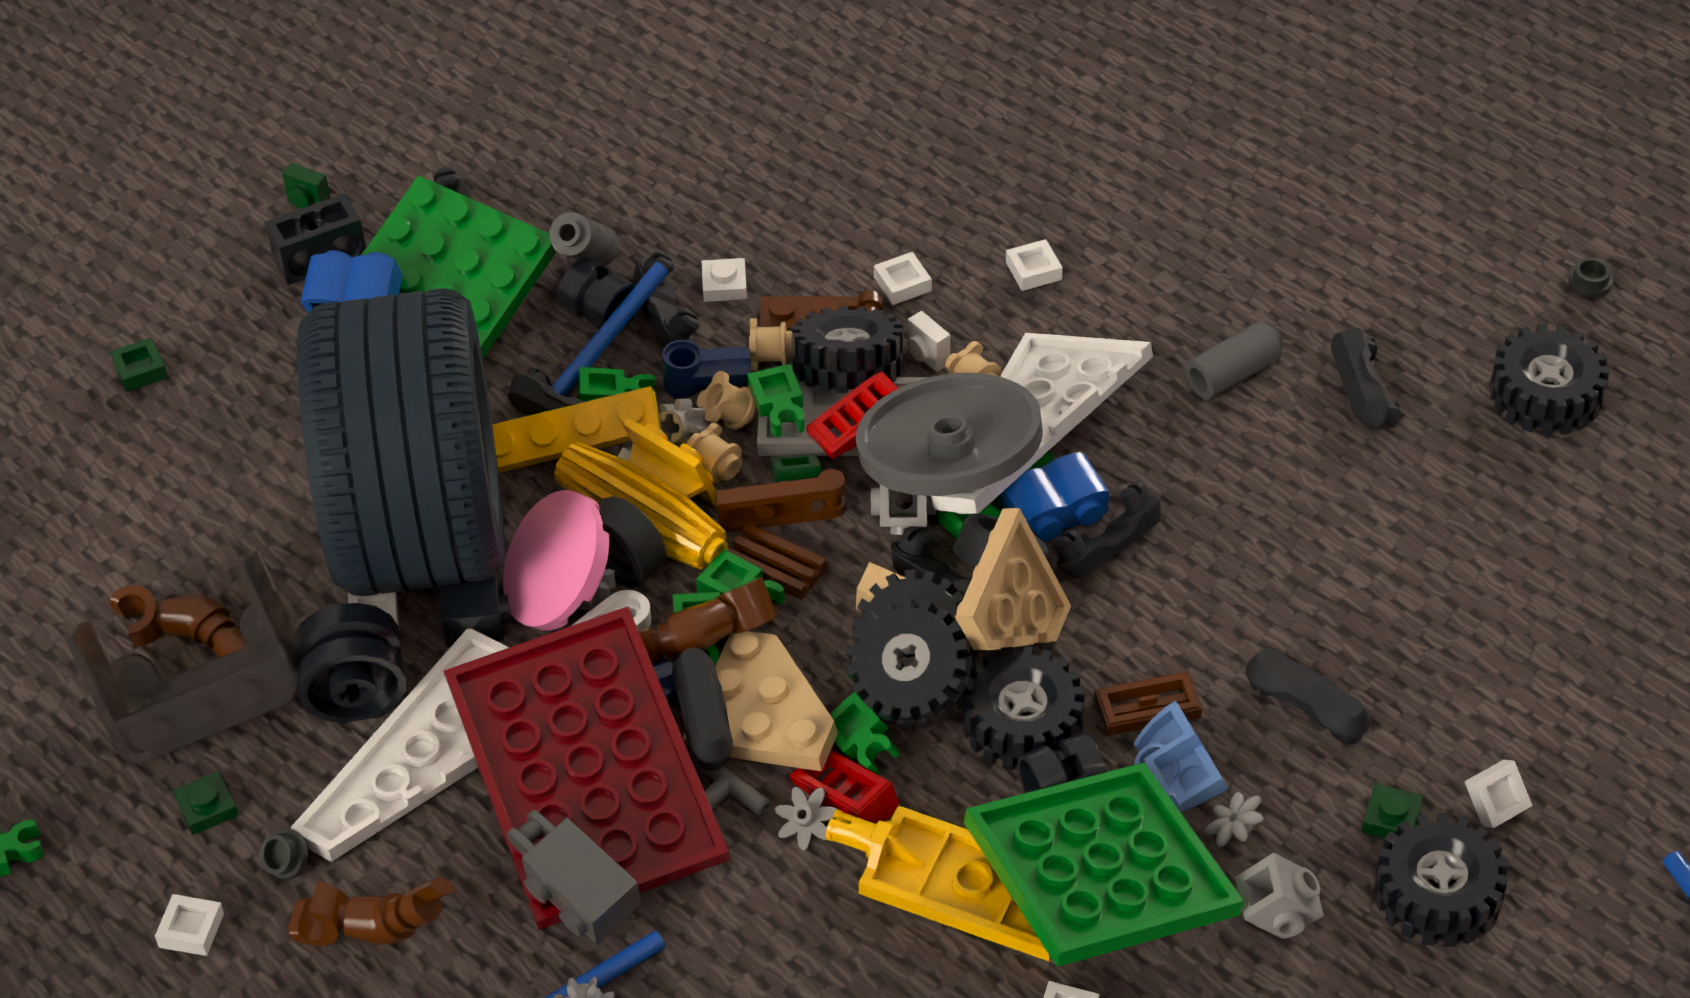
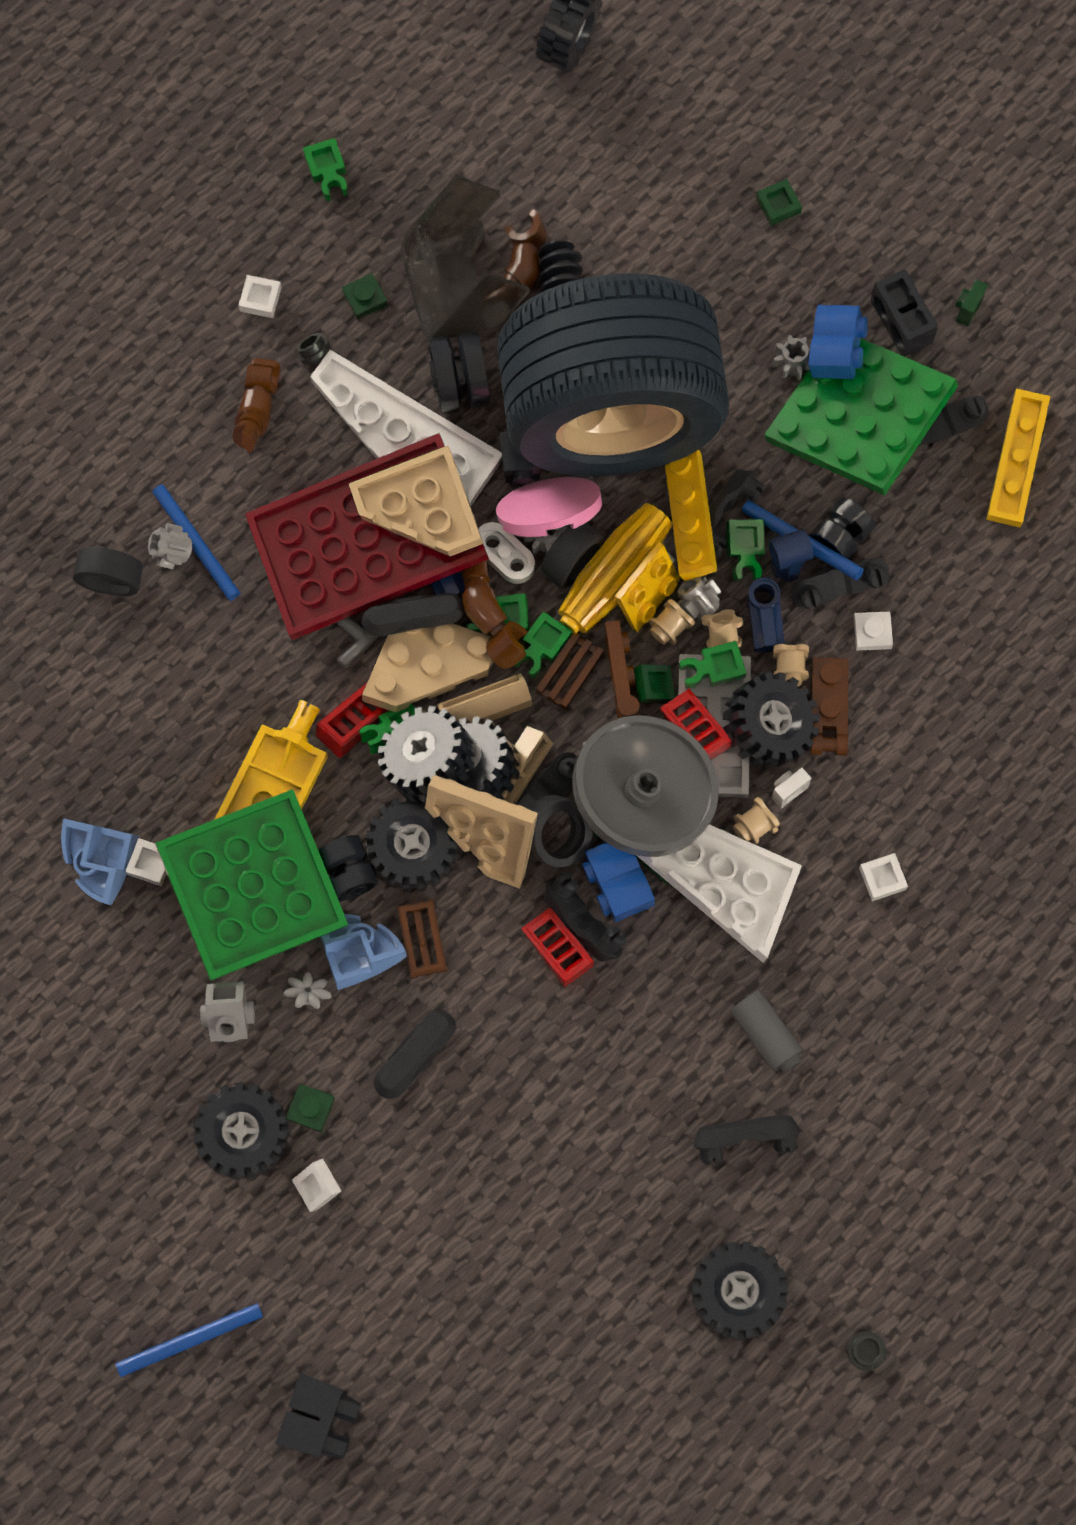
camera: 90 degrees right, 25 degrees up
(210, 572) = (559, 264): none -> black piece
(511, 153) = (1018, 458): none -> yellow plate
(551, 675) = (420, 502): none -> tan plate
(574, 876) = (265, 530): dark grey brick -> none
(583, 238) = (892, 513): dark grey brick -> none
(632, 330) = (789, 554): none -> dark blue piece
(811, 823) = (328, 691): light grey plant -> none
(828, 637) = (491, 701): none -> tan piece
(902, 278) = (868, 770): white plate -> none
(1164, 536) = (576, 969): none -> red slope

